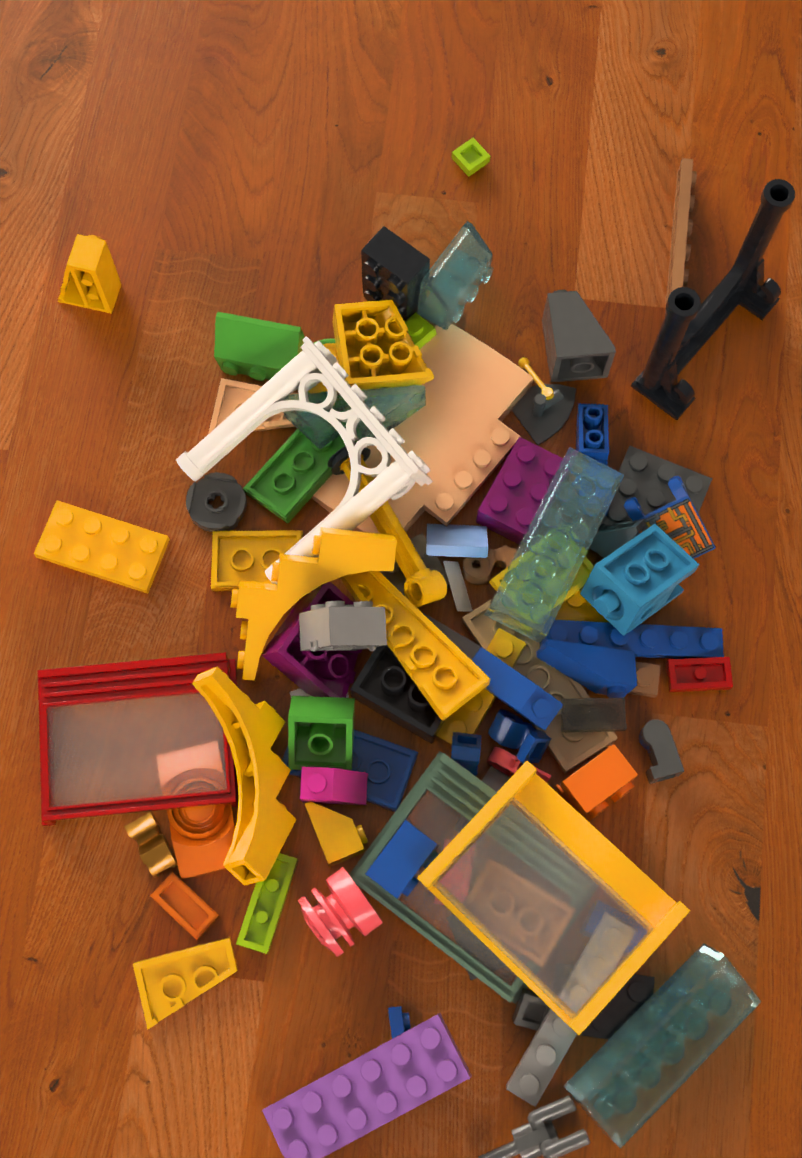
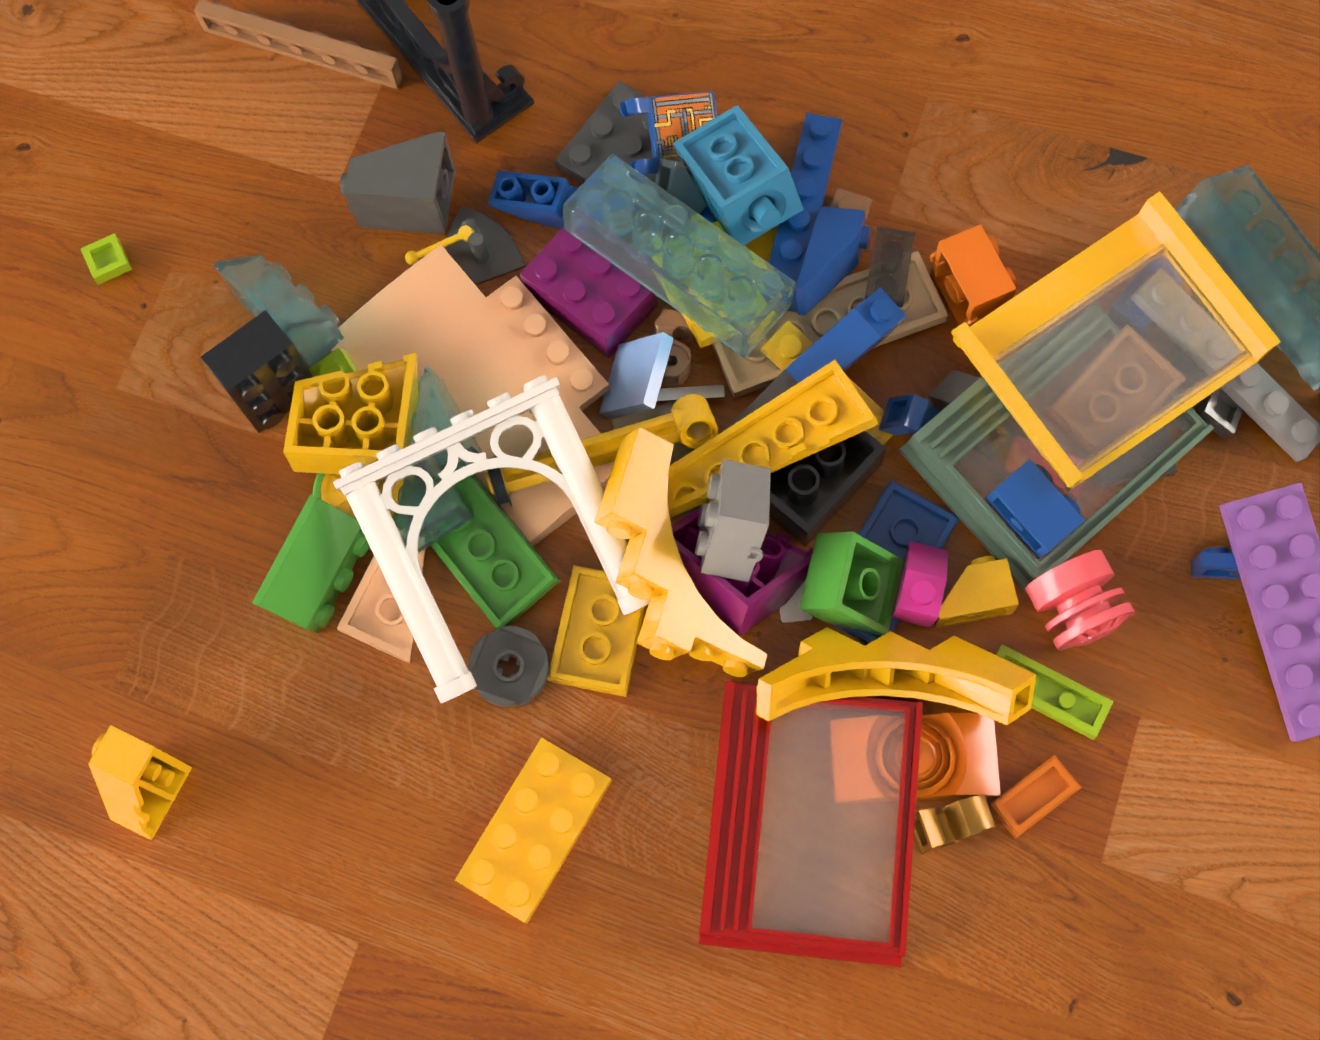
camera: 70 degrees left, 0 degrees up
(181, 976) = (1123, 816): yellow wing -> none
(509, 763) = (934, 368): coral piece -> none
(515, 734) = (892, 362): blue leg -> none
(662, 751) = (940, 210): dark grey leg -> none
(699, 674) = (856, 149): red plate -> none

